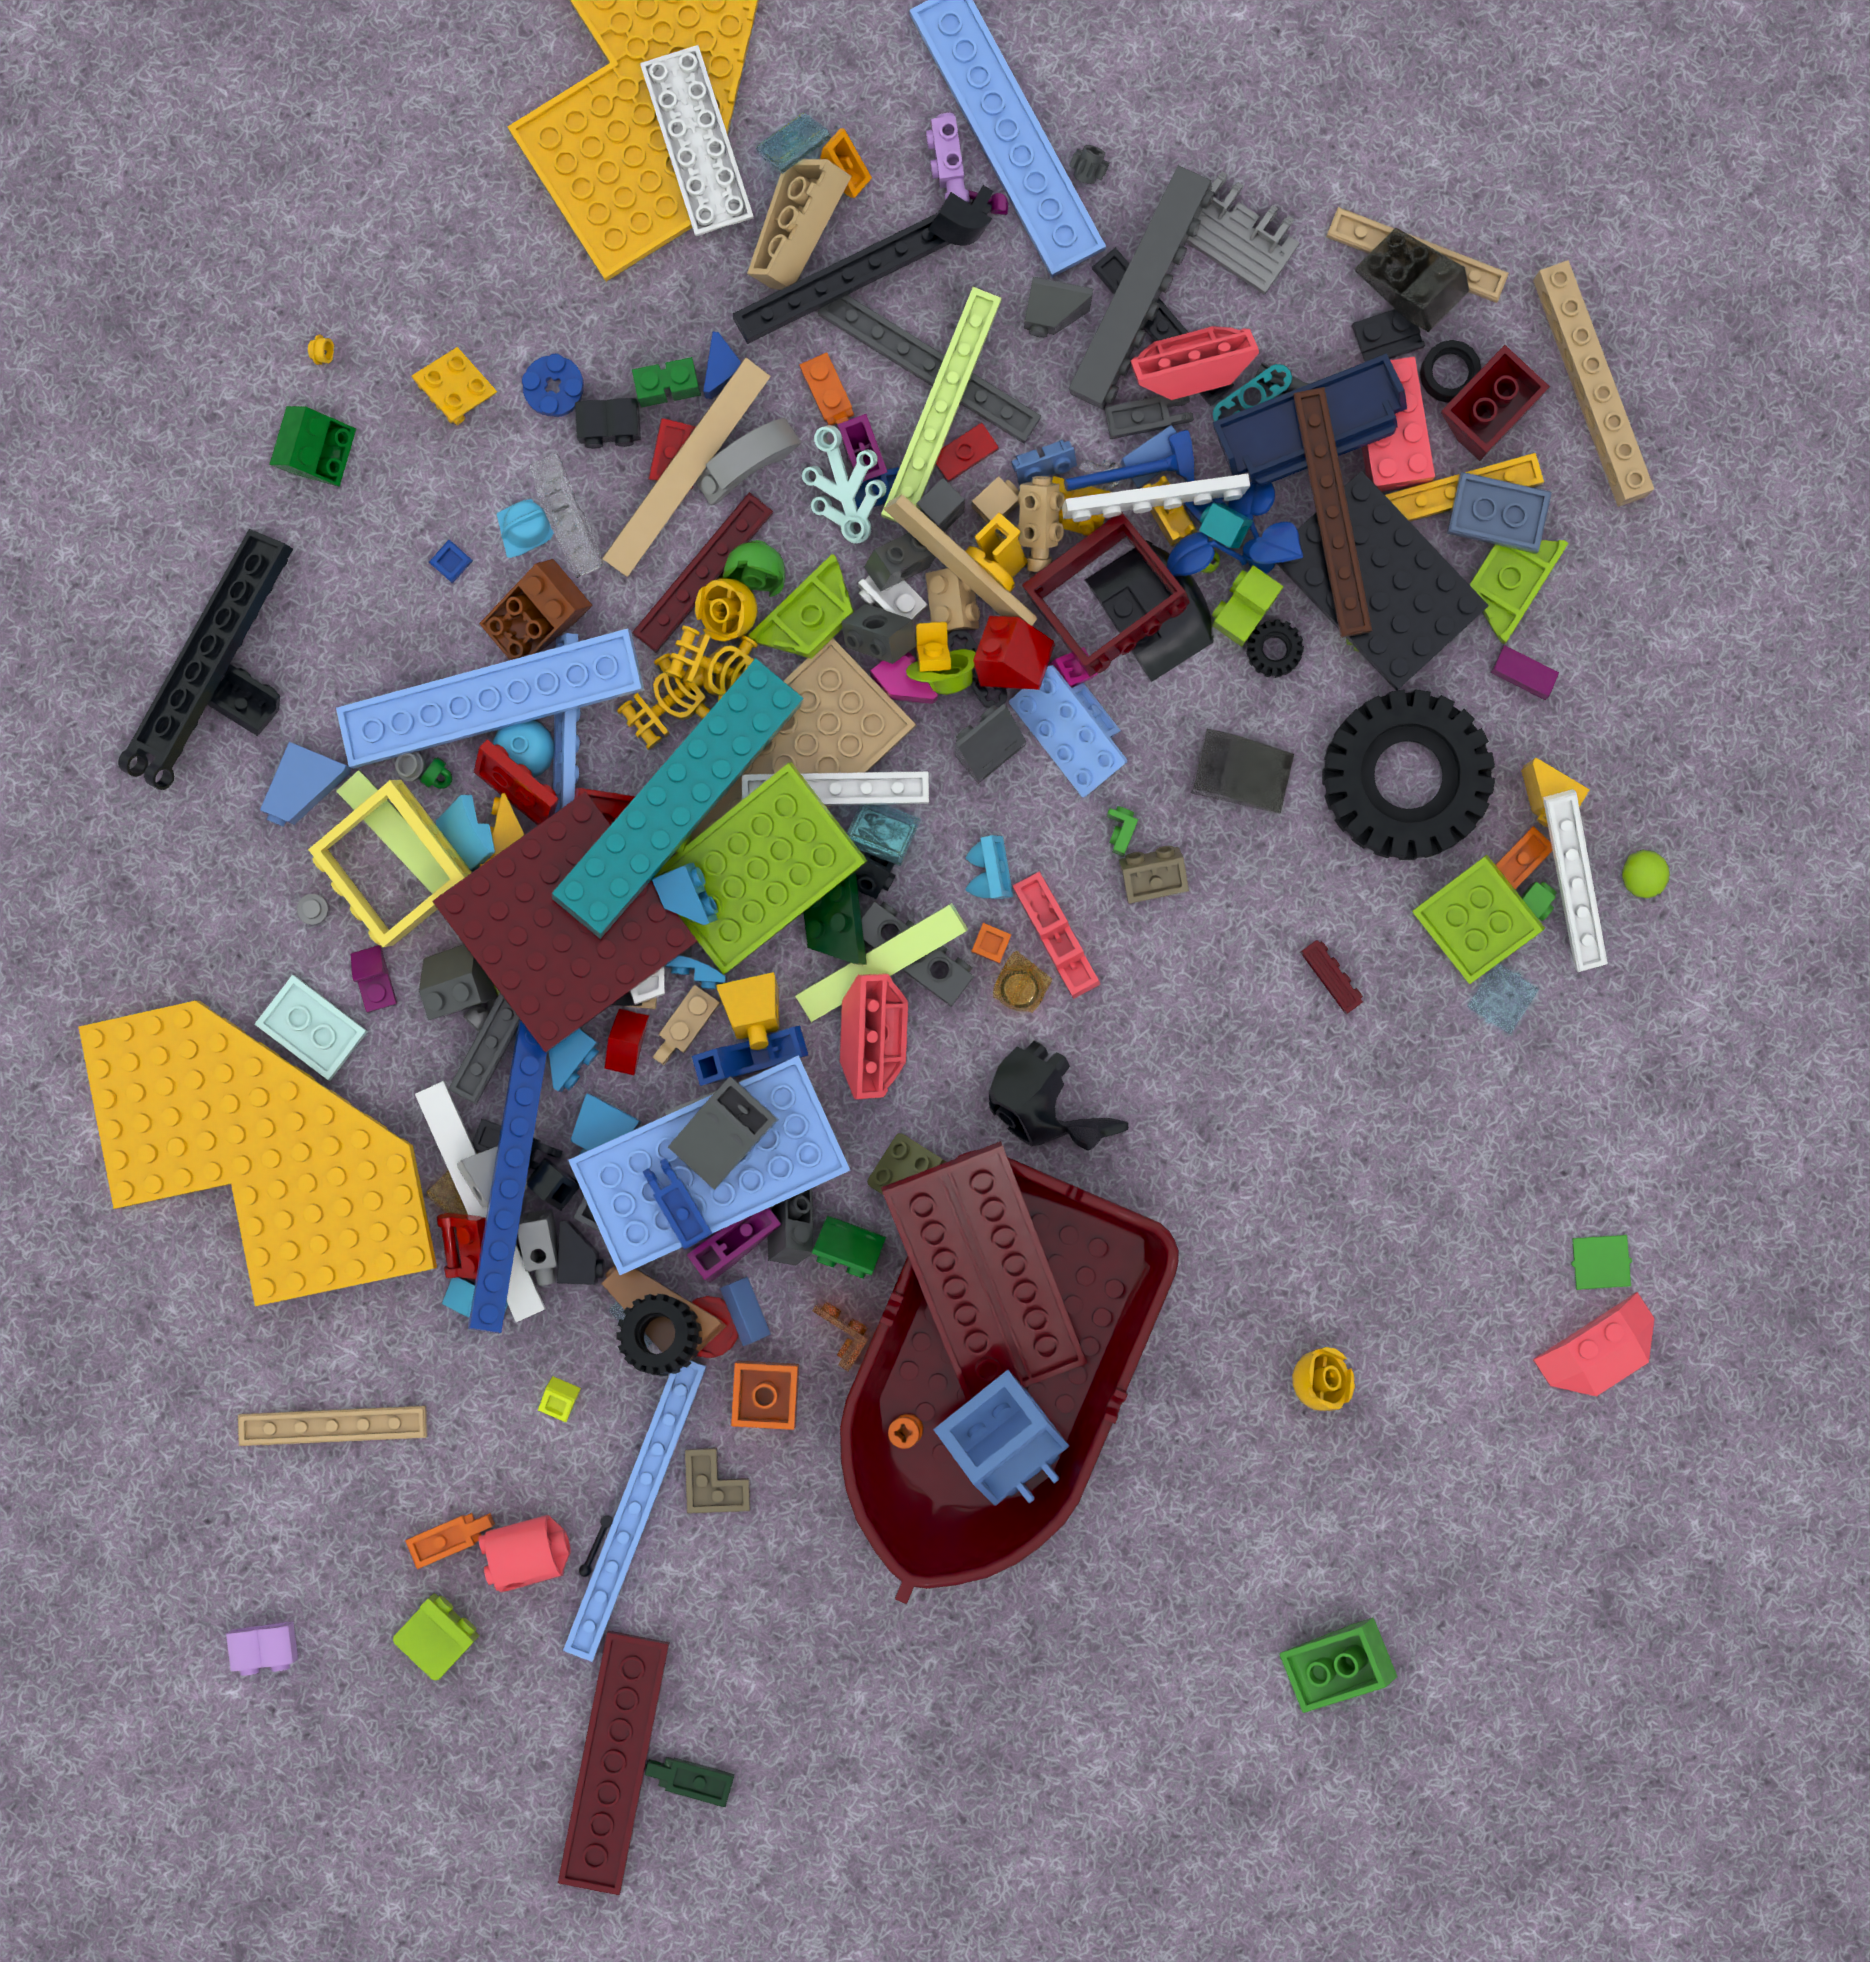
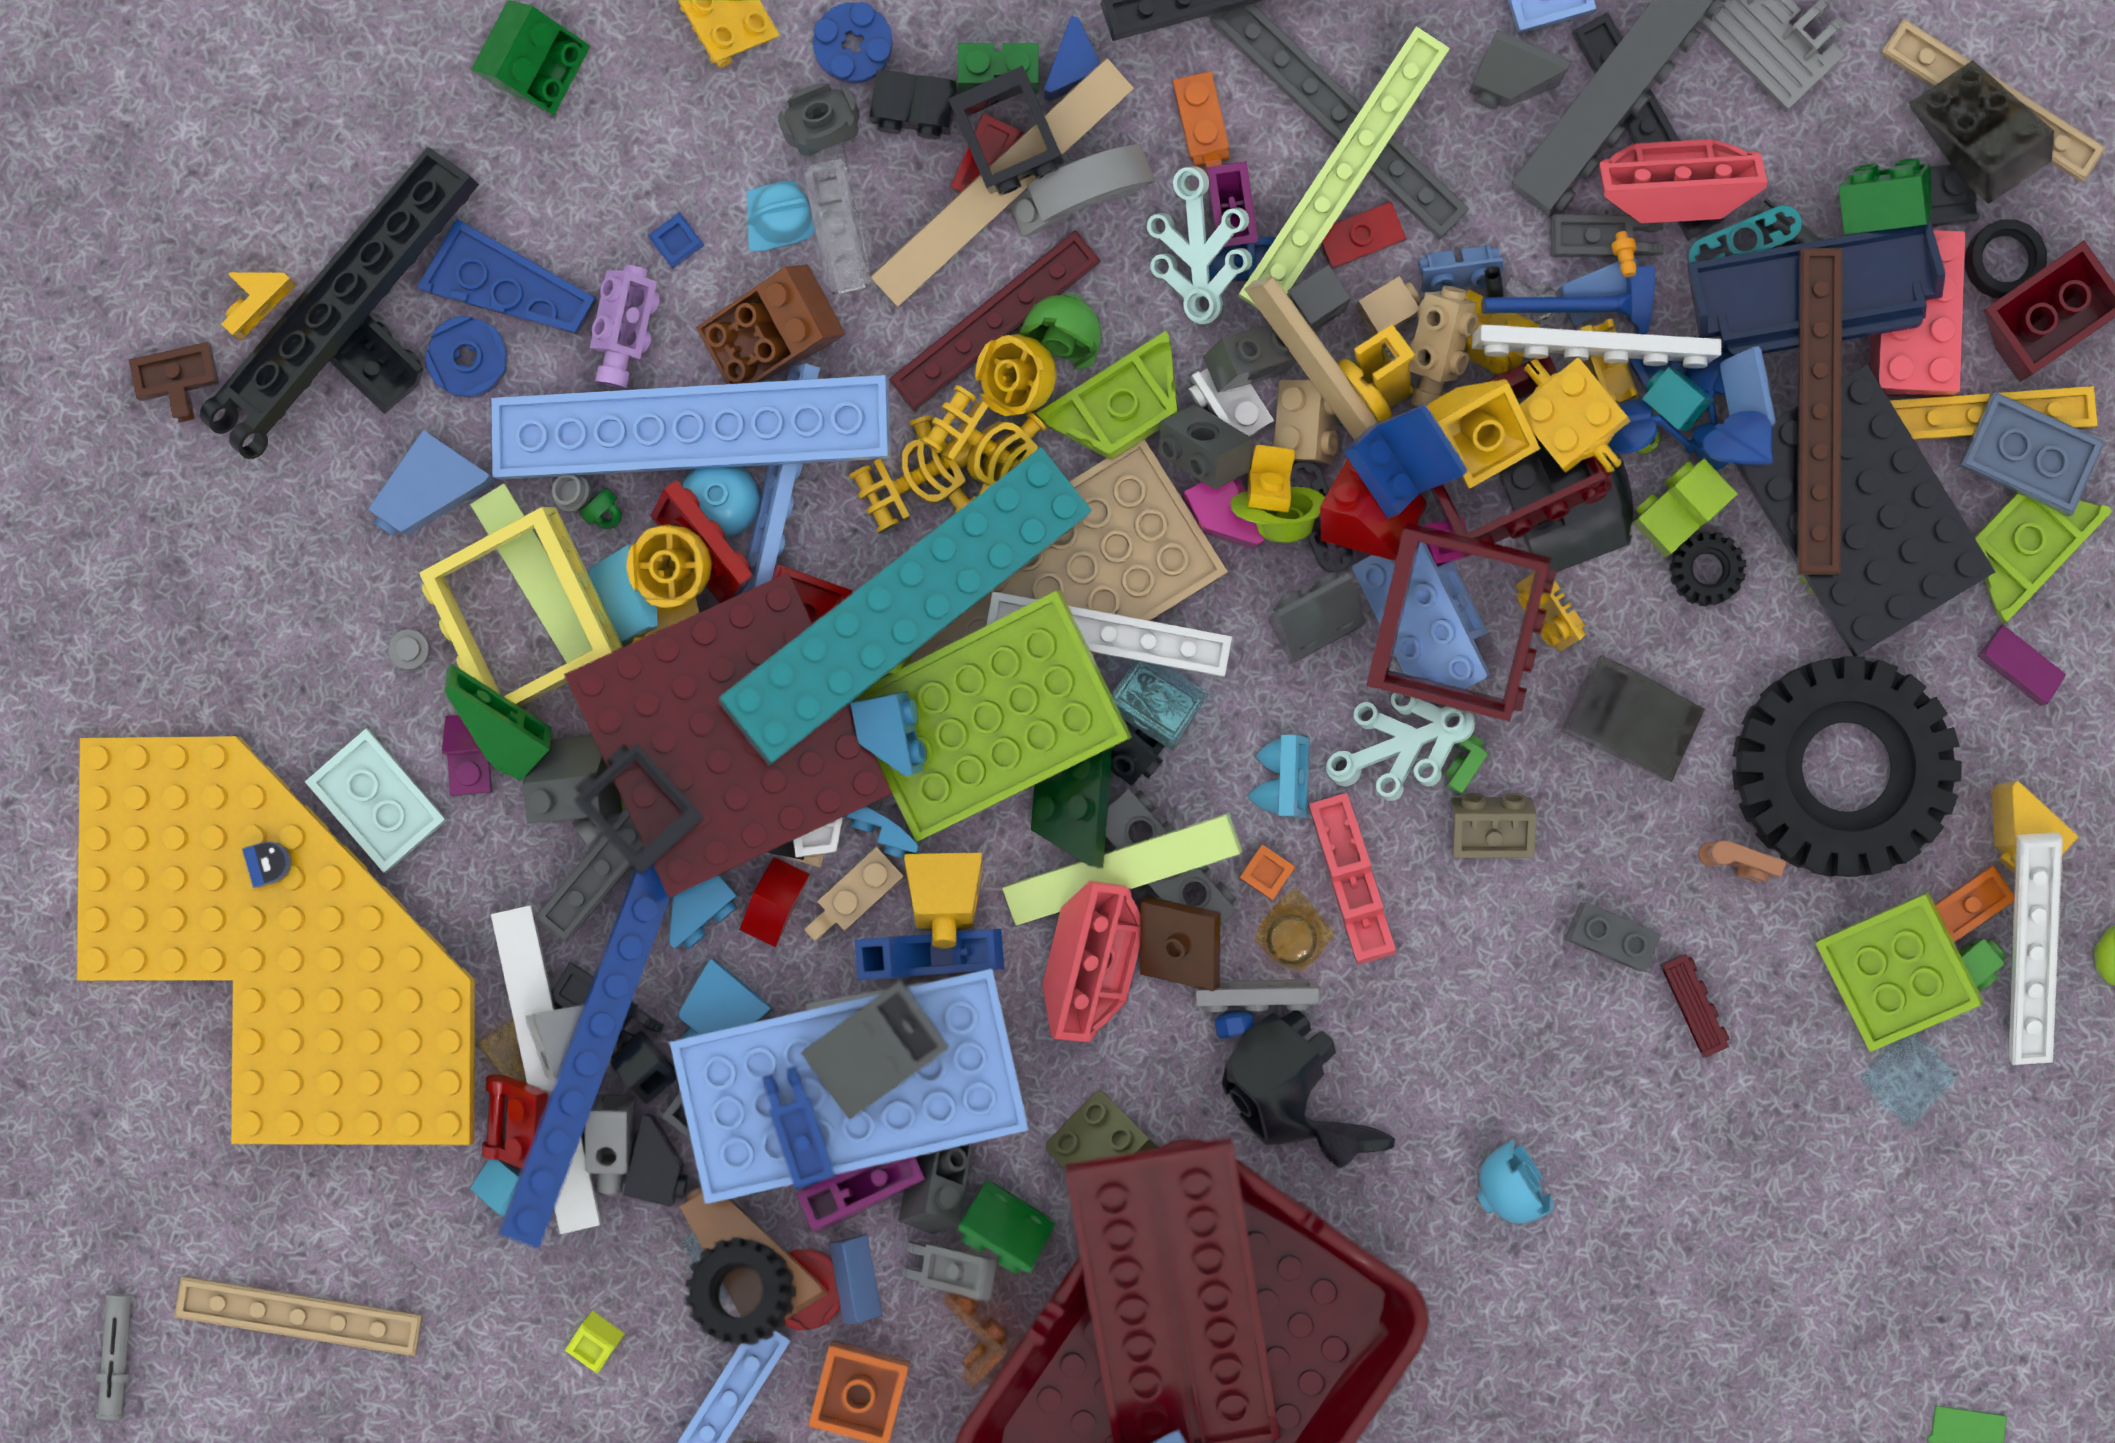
camera: 10 degrees right, 0 degrees up
(93, 739) = (174, 375): none -> reddish brown plate
(149, 664) = (265, 294): none -> yellow slope
(200, 1485) = (114, 1357): none -> light grey pin
(238, 1089) = (267, 863): none -> tile
(293, 680) = (445, 348): none -> blue plate
(320, 617) = (495, 278): none -> blue wing
(394, 953) = (502, 730): none -> green slope
(422, 631) = (623, 322): none -> lavender brick
(494, 804) = (668, 565): none -> yellow cylinder
(534, 460) = (811, 134): none -> dark grey plate
(534, 1008) = (619, 762): none -> black window
(663, 402) = (989, 95): none -> black window
(816, 1288) = (952, 1270): none -> light grey hinge
(936, 1009) = (1180, 943): none -> reddish brown plate
(989, 1061) = (1233, 1023): none -> blue tile
(1002, 1036) = (1259, 994): none -> light grey plate
(1029, 611) = (1404, 458): none -> blue bracket
(1070, 466) = (1494, 282): none -> black piece
(1074, 825) = (1405, 744): none -> light aqua plant
(1082, 577) = (1484, 428): none -> yellow slope
(1148, 552) = (1573, 415): none -> yellow plate
(1149, 740) = (1440, 693): none -> dark red window
(1152, 695) = (1559, 627): none -> yellow hinge
(1163, 422) = (1624, 250): none -> light orange piece
(1222, 1139) = (1512, 1186): none -> medium azure cylinder
(1259, 937) = (1612, 937): none -> dark grey brick
(1274, 502) = (1747, 383): none -> medium blue slope
(1350, 343) = (1886, 197): none -> green slope
(1351, 861) = (1750, 863): none -> nougat plate

